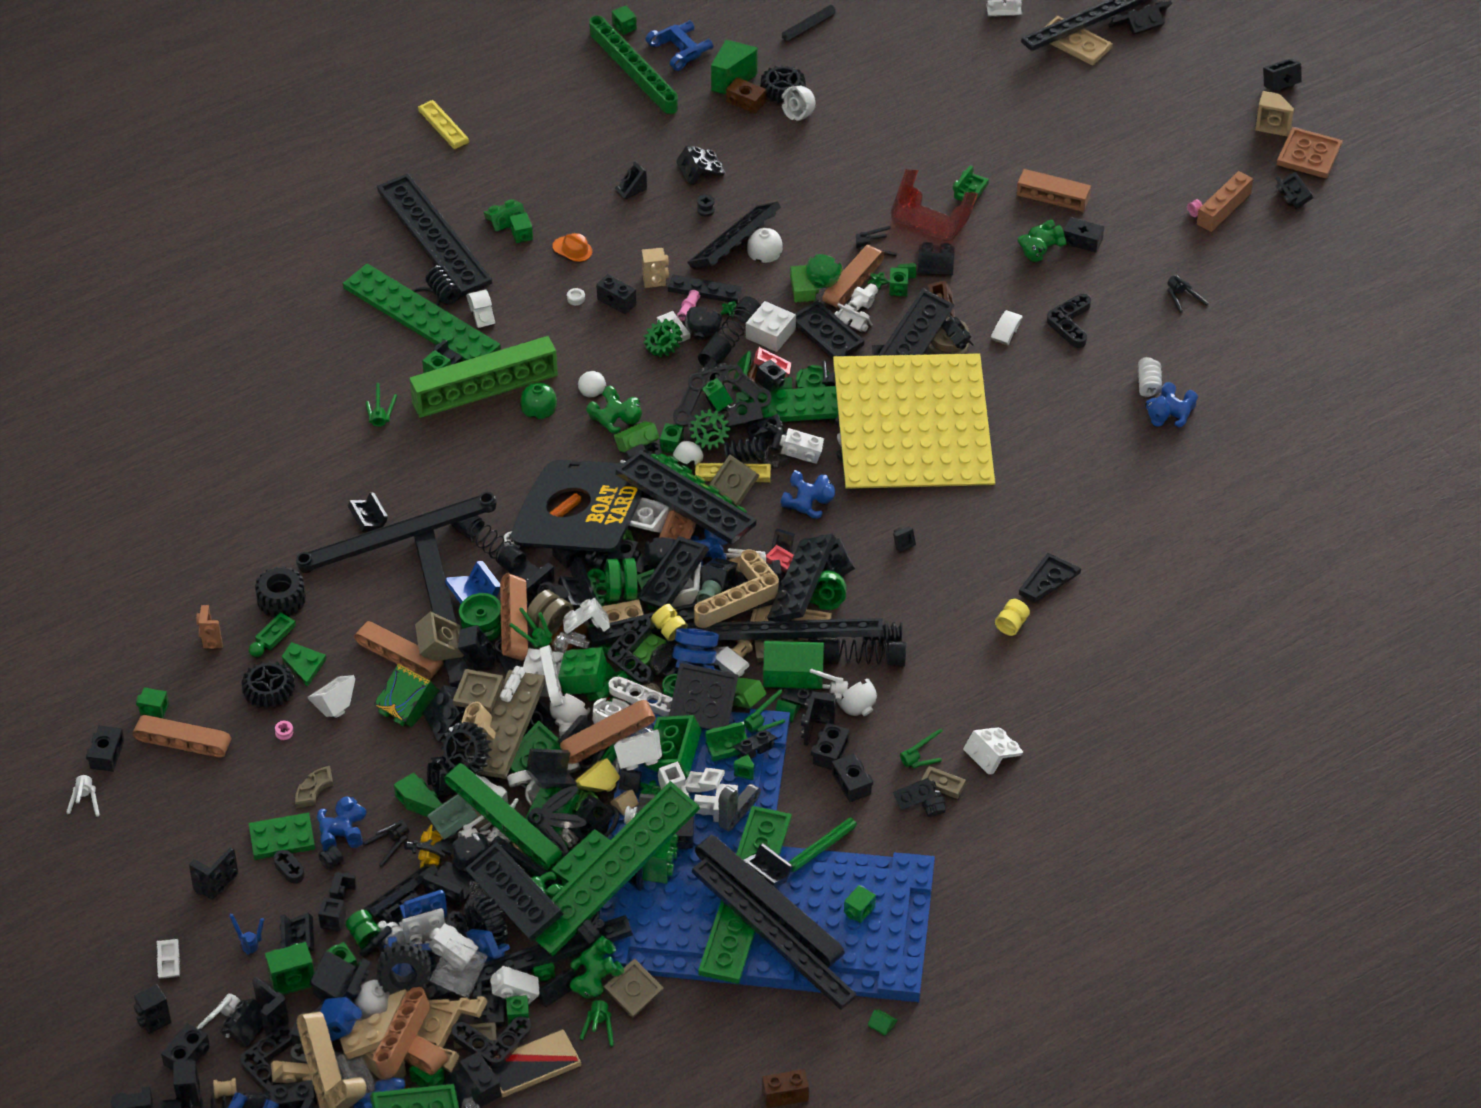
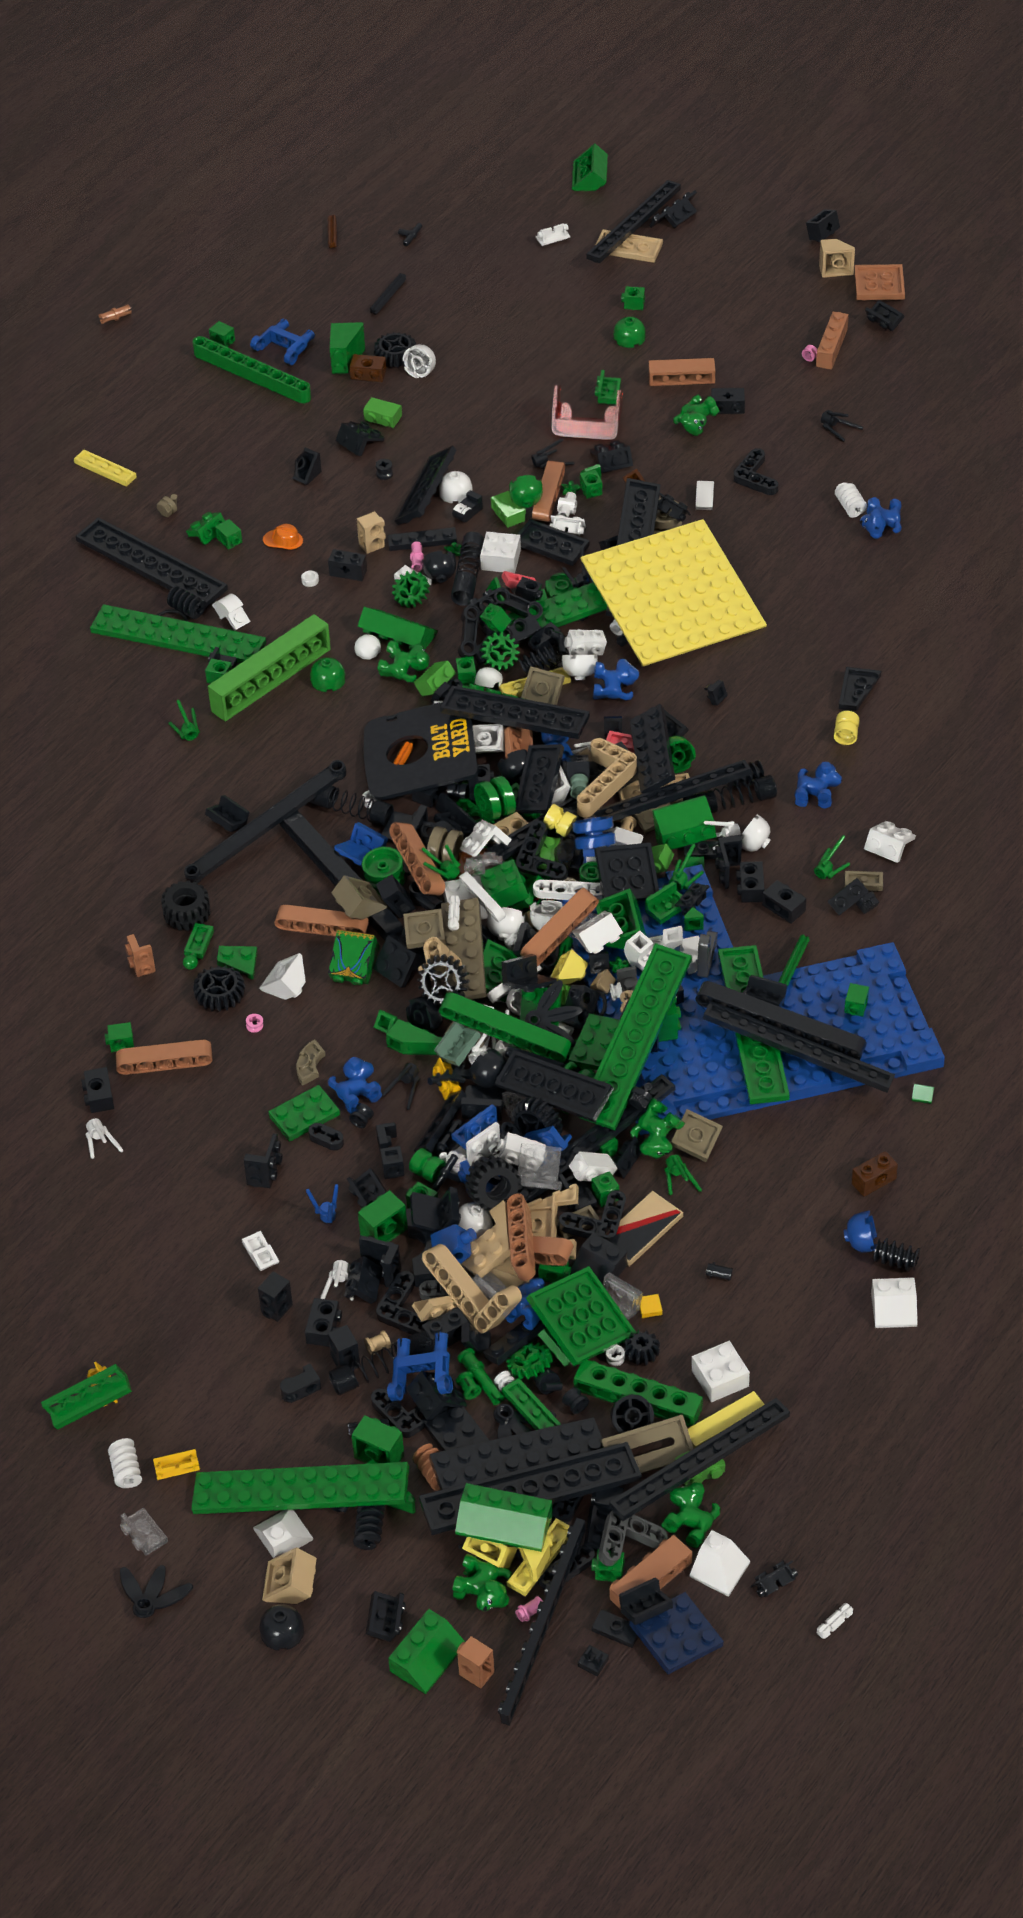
camera: 20 degrees left, 0 degrees up
(403, 769) = (384, 1021): none -> green slope
(479, 181) = (167, 506): none -> dark tan piece
(629, 373) = (395, 627): none -> green slope
(735, 146) = (382, 412): none -> bright green brick
(765, 269) = (468, 507): none -> black leg
(782, 467) = (579, 665): none -> white cylinder
(962, 662) = (825, 776): none -> blue animal
(1024, 133) = (629, 332): none -> green cylinder
(1048, 98) = (633, 298): none -> green brick

